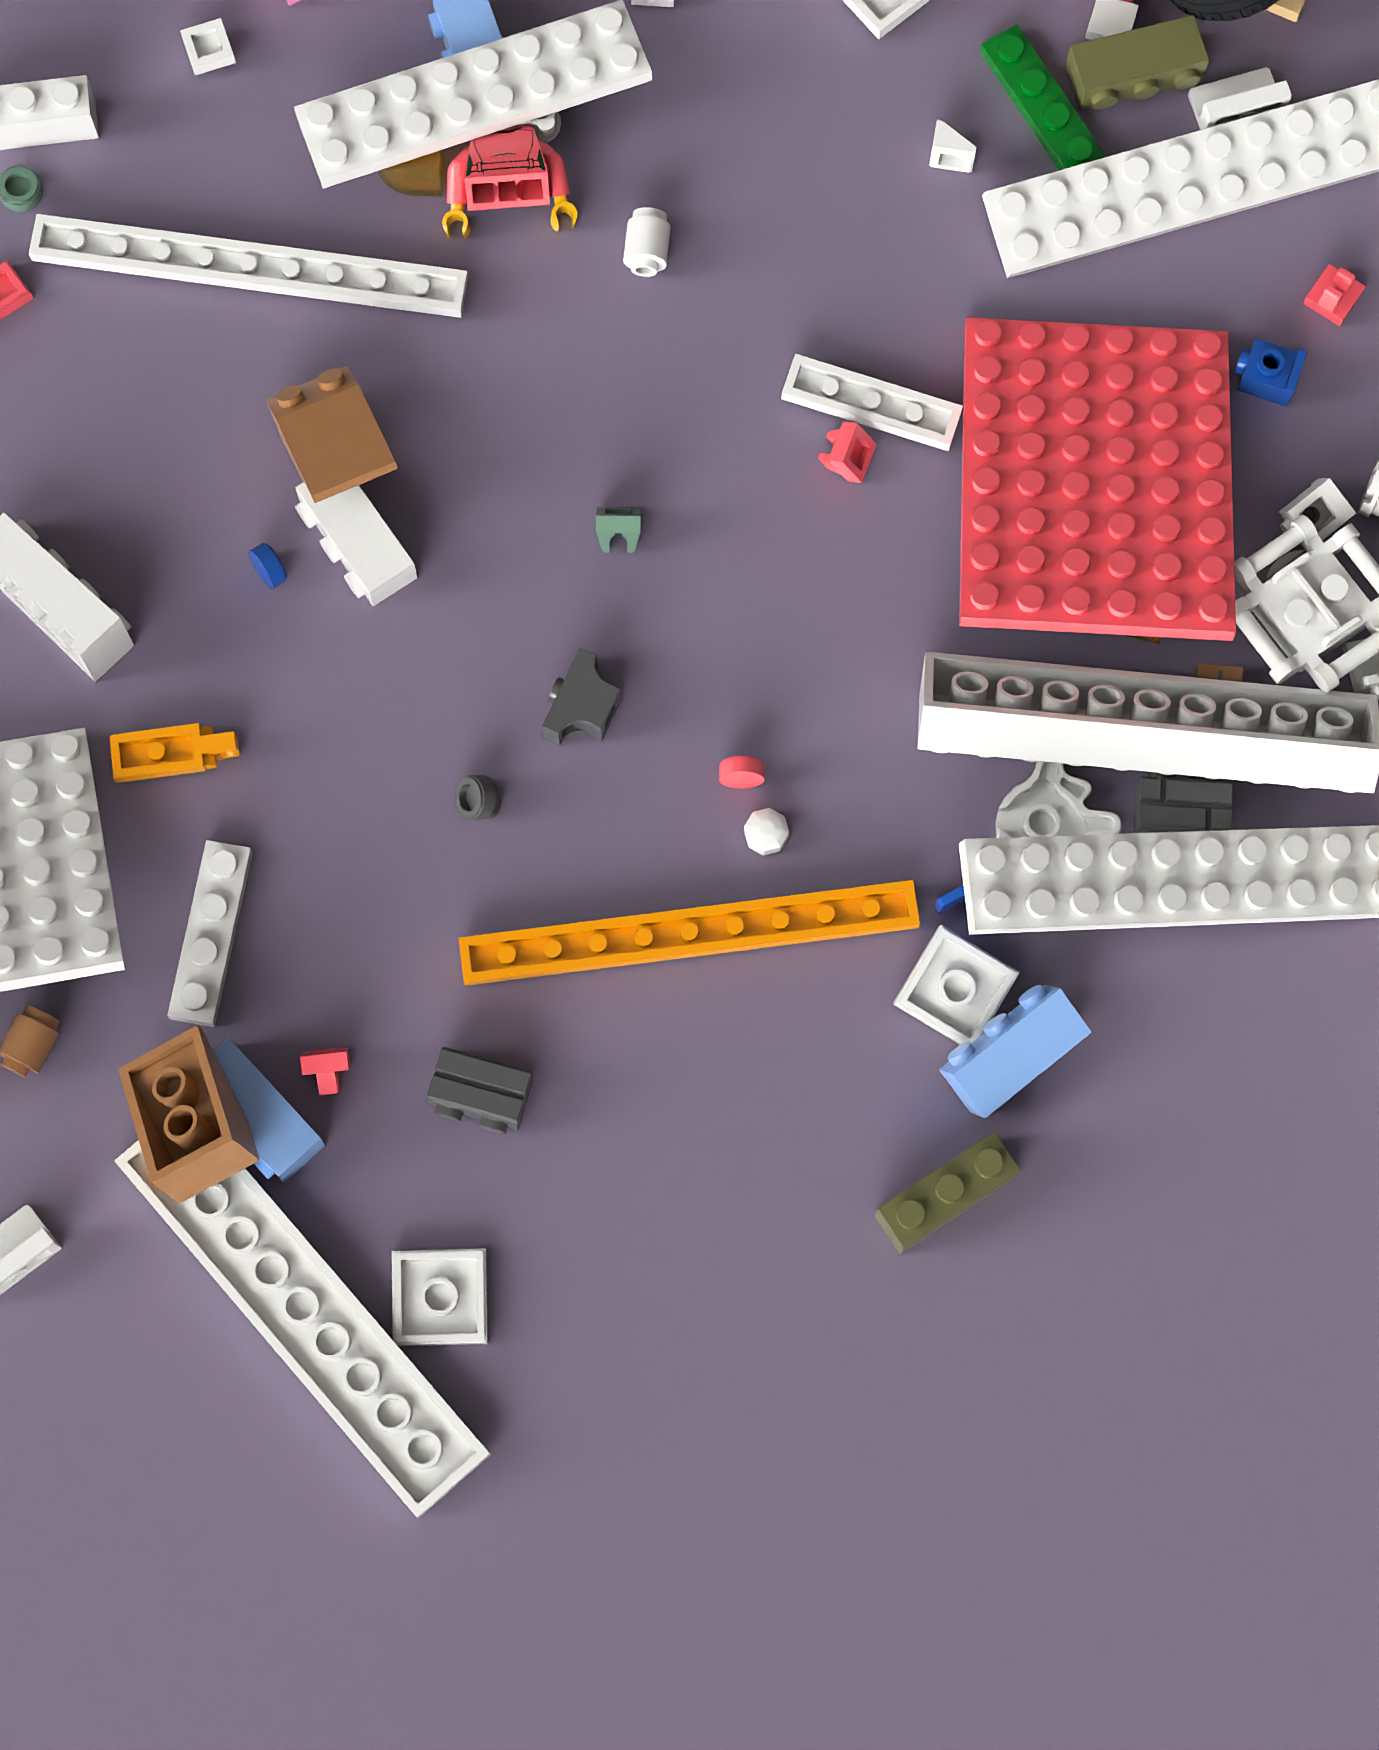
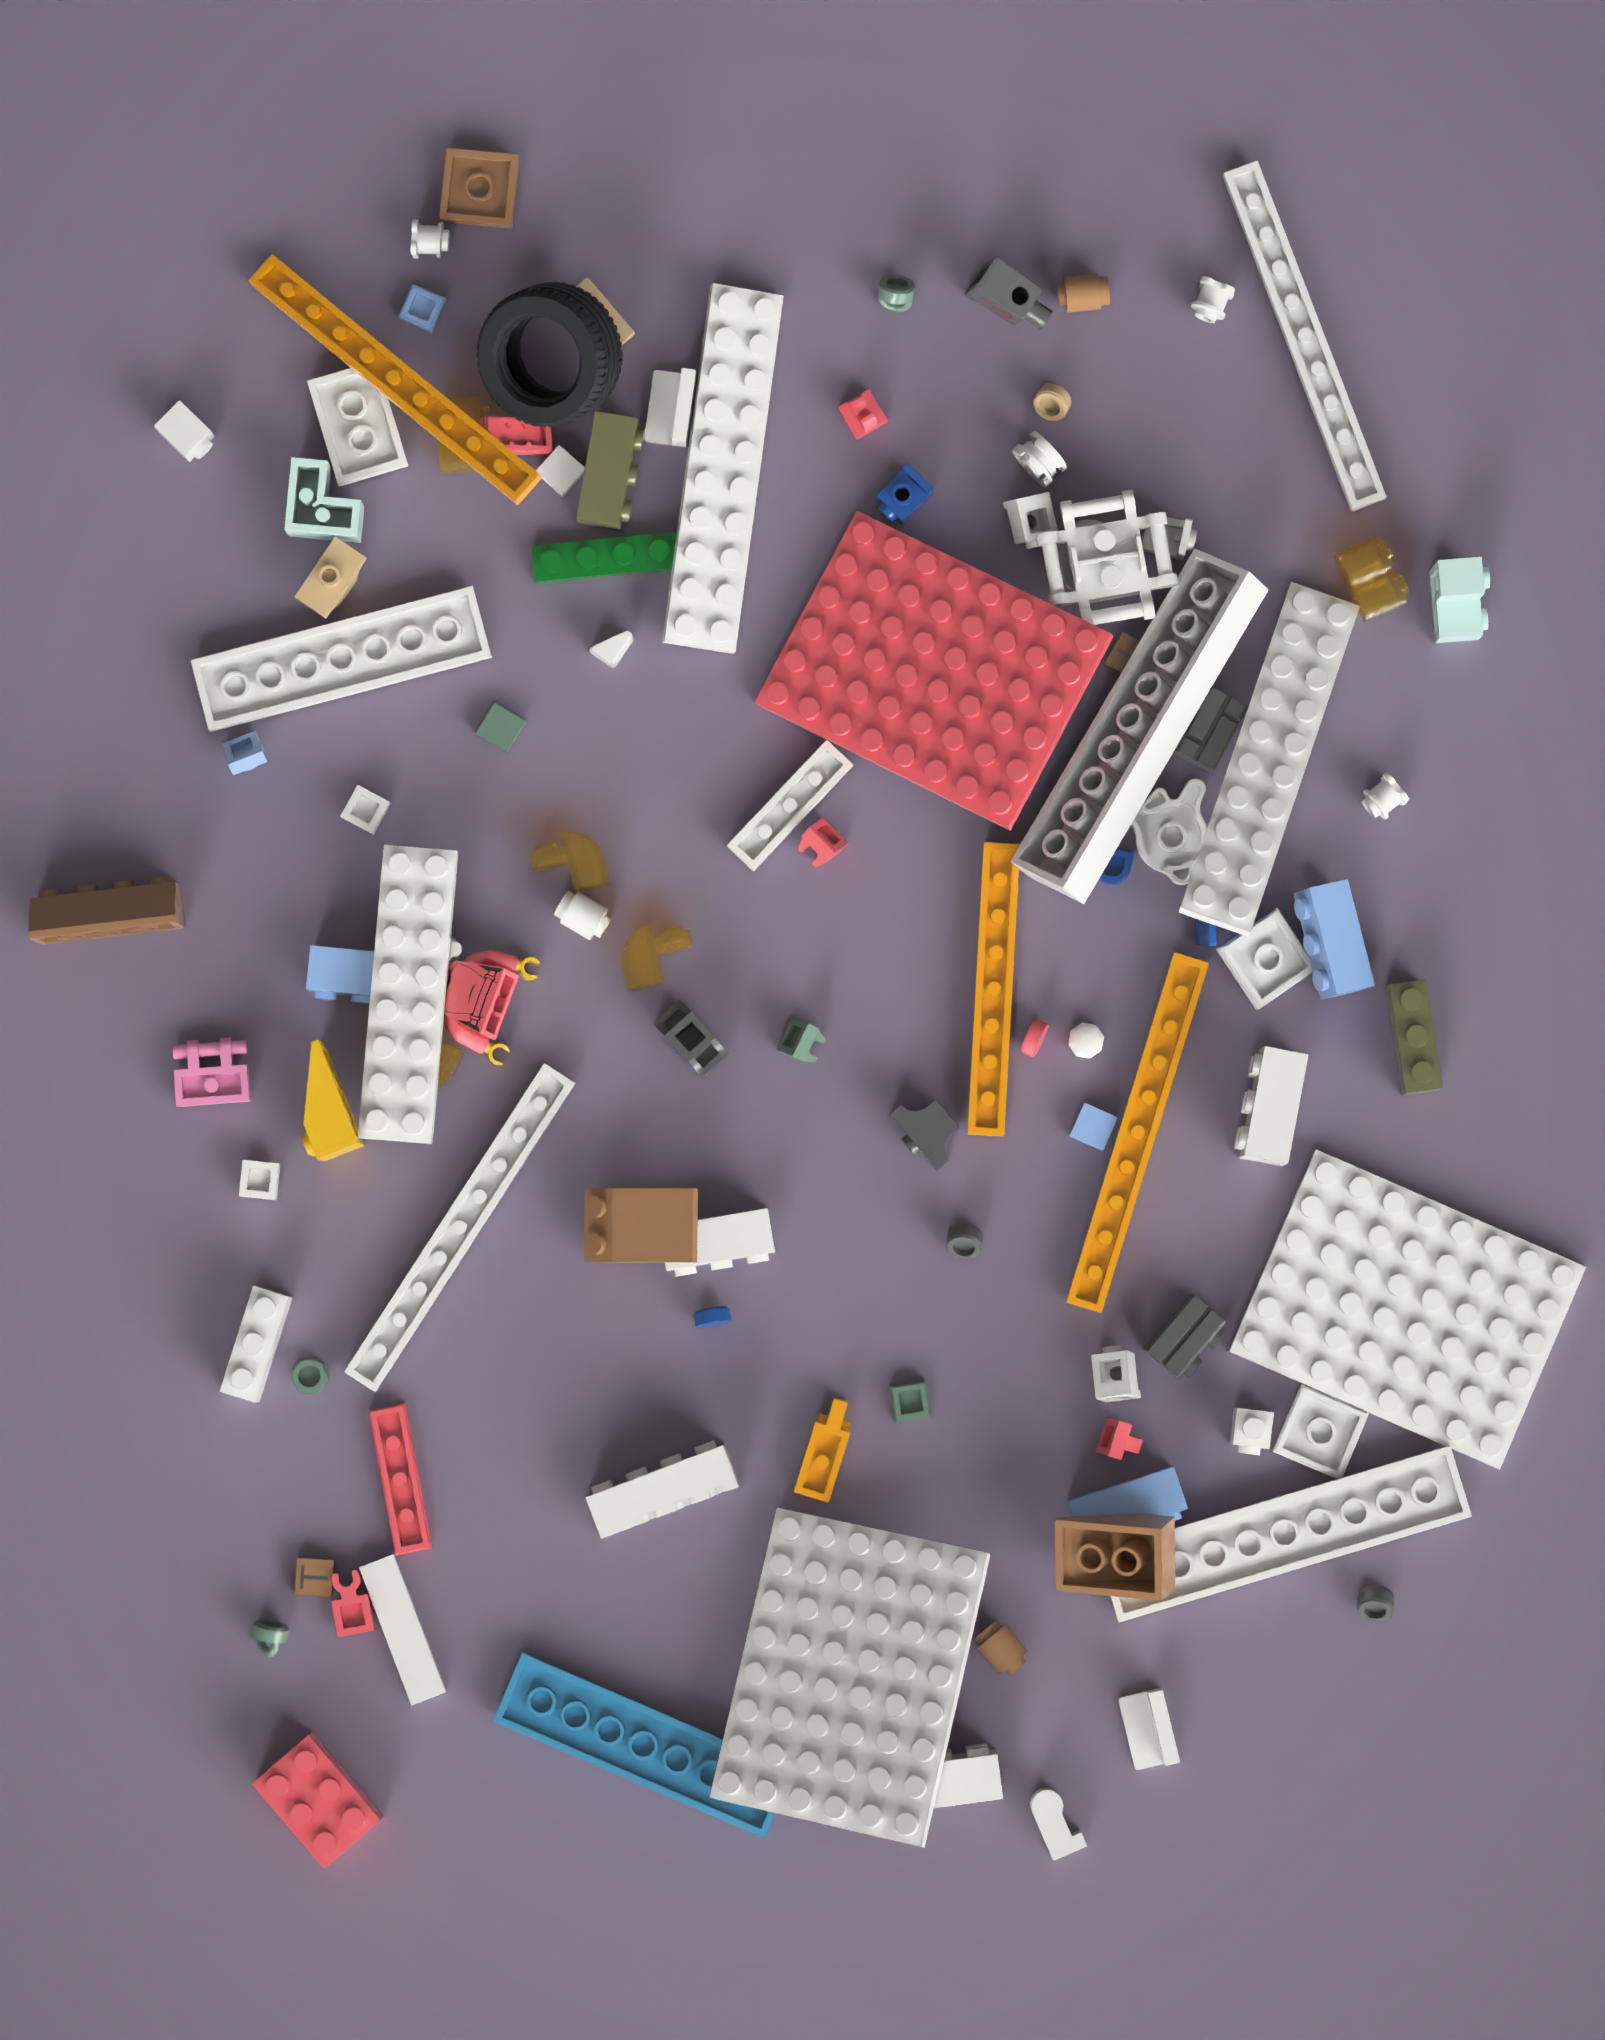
camera: 60 degrees left, 10 degrees up
(210, 933) = (976, 1481): white plate -> none
(265, 1451) = (1375, 1603): none -> dark grey tile
(269, 822) = (910, 1401): none -> sand green tile
(315, 65) = (327, 1113): none -> yellow slope
(399, 1029) = (1103, 1367): none -> white brick
(404, 1212) = (1251, 1430): none -> white brick
(564, 410) = (691, 1038): none -> dark grey brick
(628, 1335) = (1407, 1309): none -> white plate
(634, 321) = (641, 954): none -> clear yellow brick
(673, 883) = (1093, 1126): none -> light blue tile
(707, 216) = (582, 855): none -> clear yellow brick
(770, 706) = (993, 990): none -> light orange plate
(789, 1062) = (1271, 1105): none -> white brick
(808, 79) = (500, 727): none -> sand green tile
(978, 776) = (1118, 867): none -> blue tile
(1205, 1036) = (1384, 797): none -> white brick

